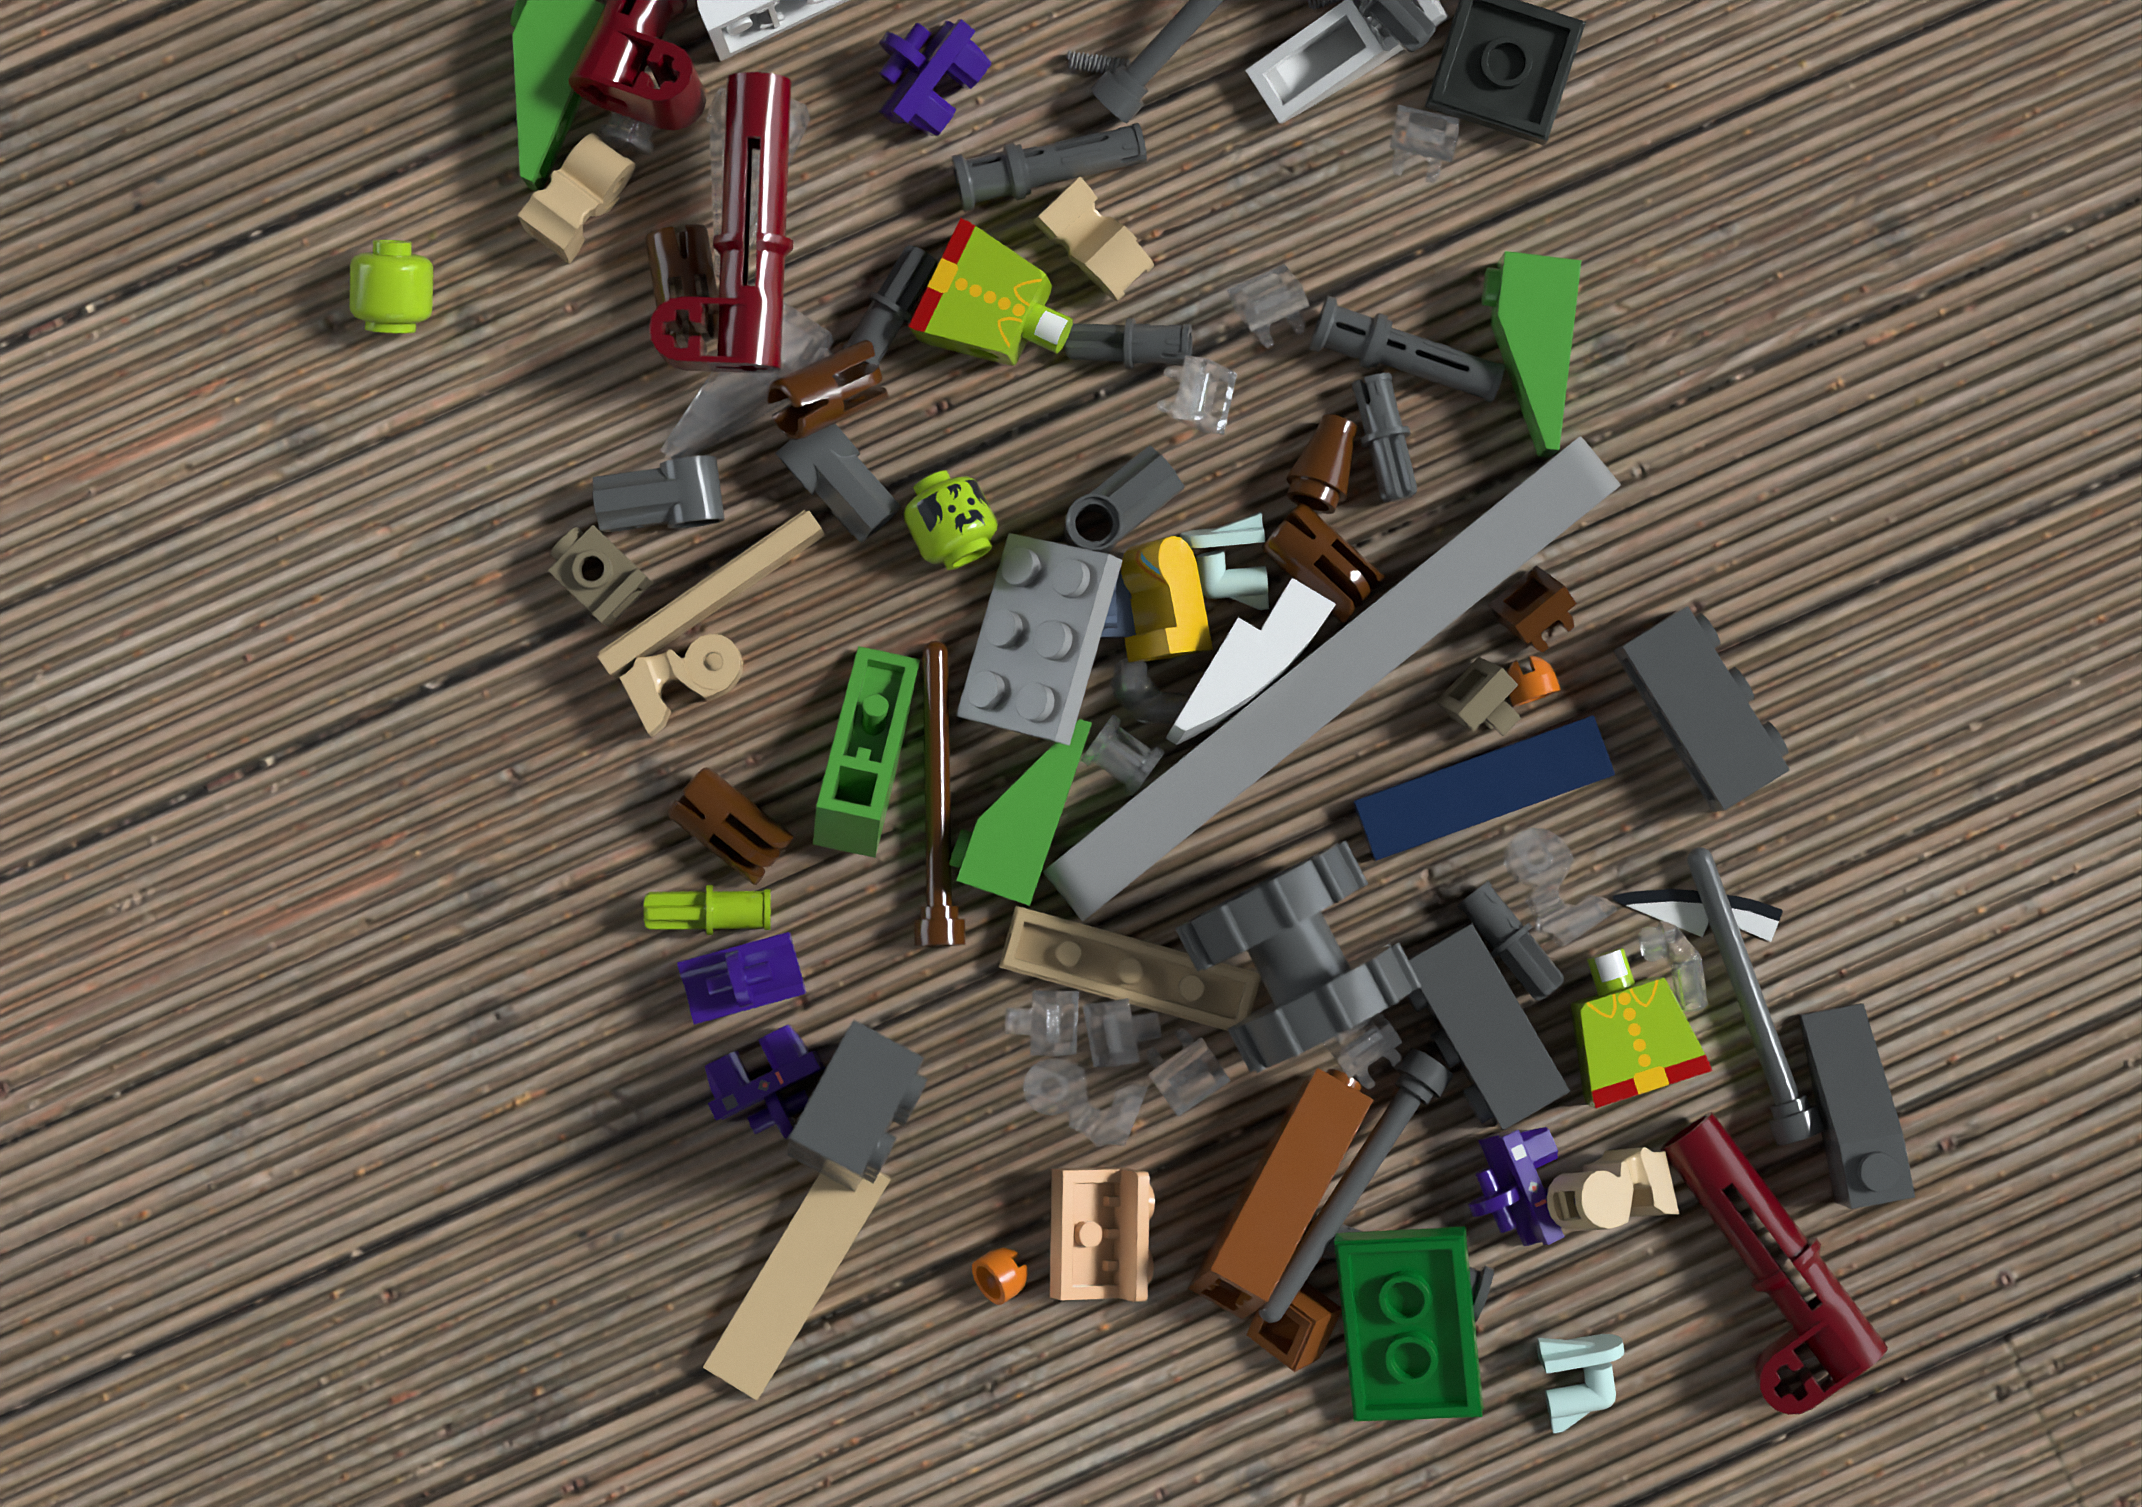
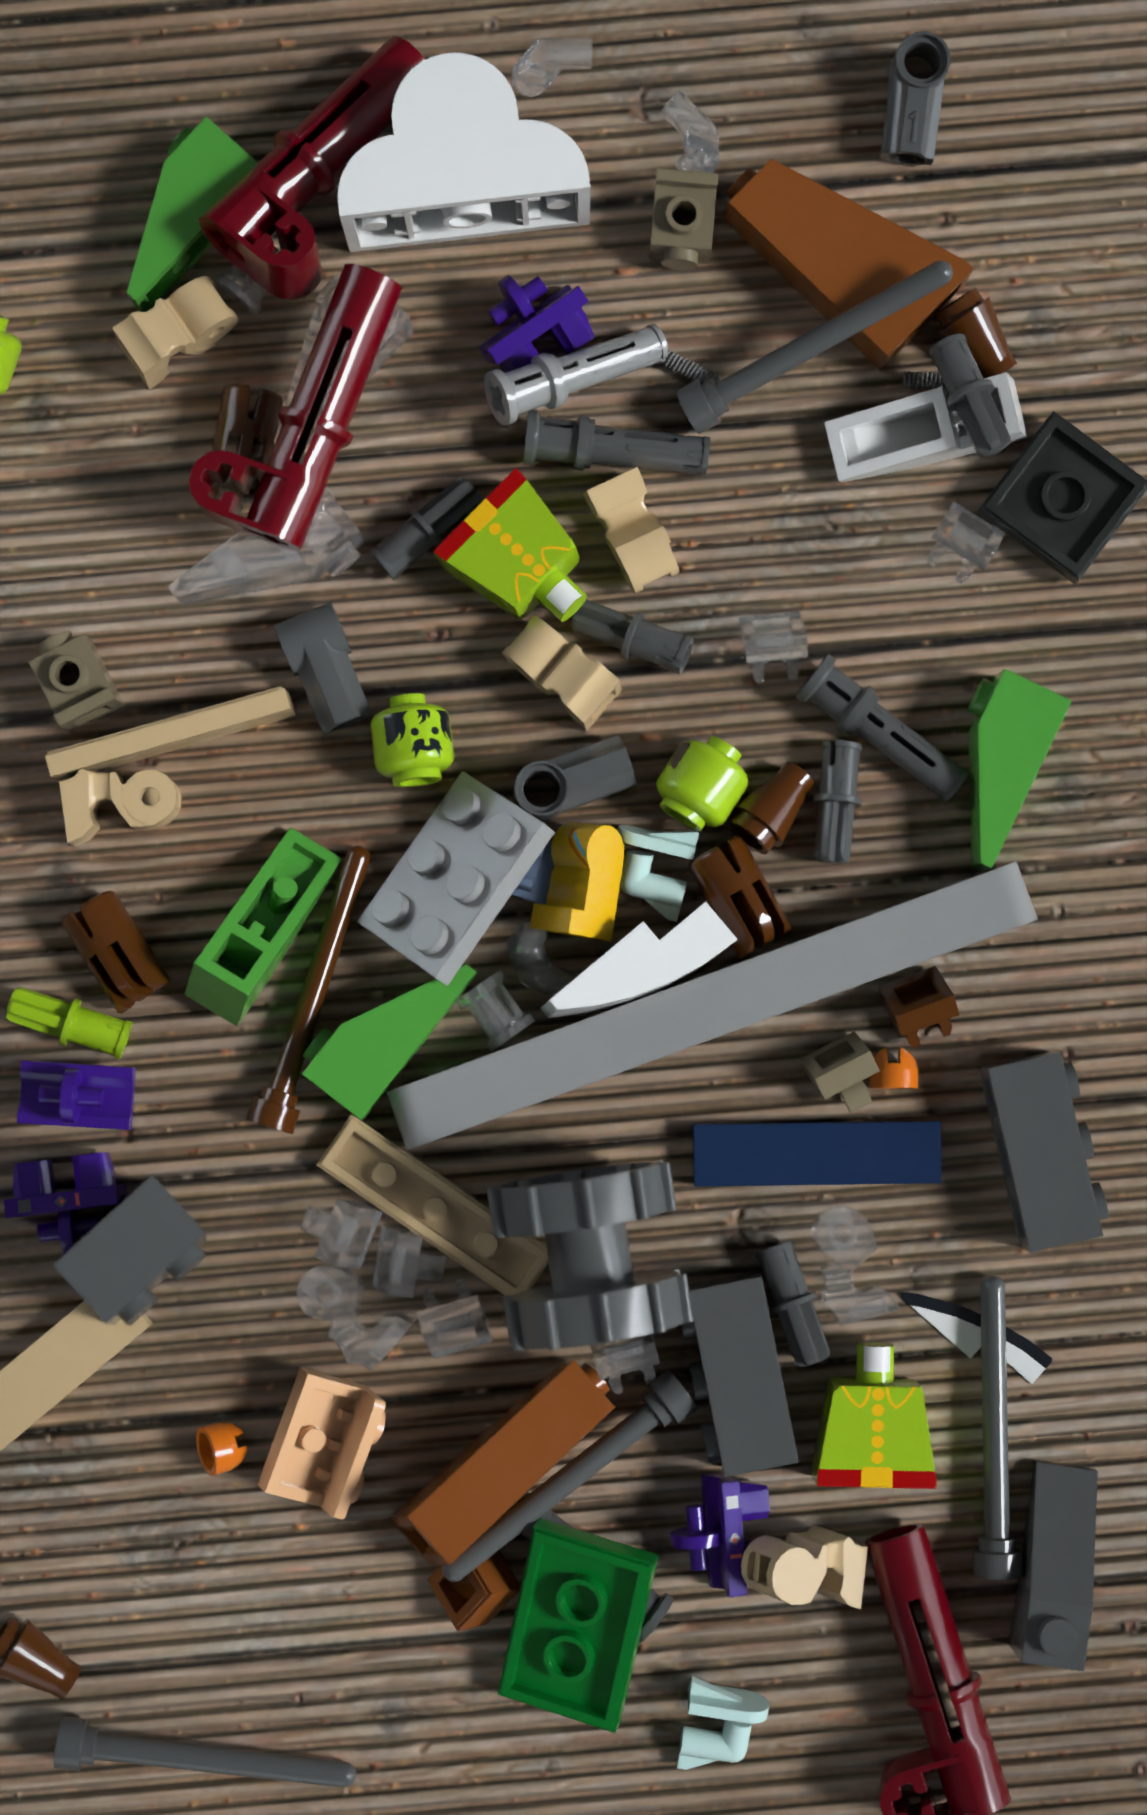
camera: 20 degrees right, 0 degrees up
(678, 494) = (172, 631): dark grey piece -> none
(827, 391) = (338, 585): reddish brown arm -> none
(965, 119) = (551, 379): none -> light grey pin
(1072, 400) = (563, 670): none -> tan leg
(1202, 394) = (682, 705): clear tile -> none
(1248, 464) = (702, 783): none -> lime head
(1683, 959) = (945, 1375): clear arm -> none

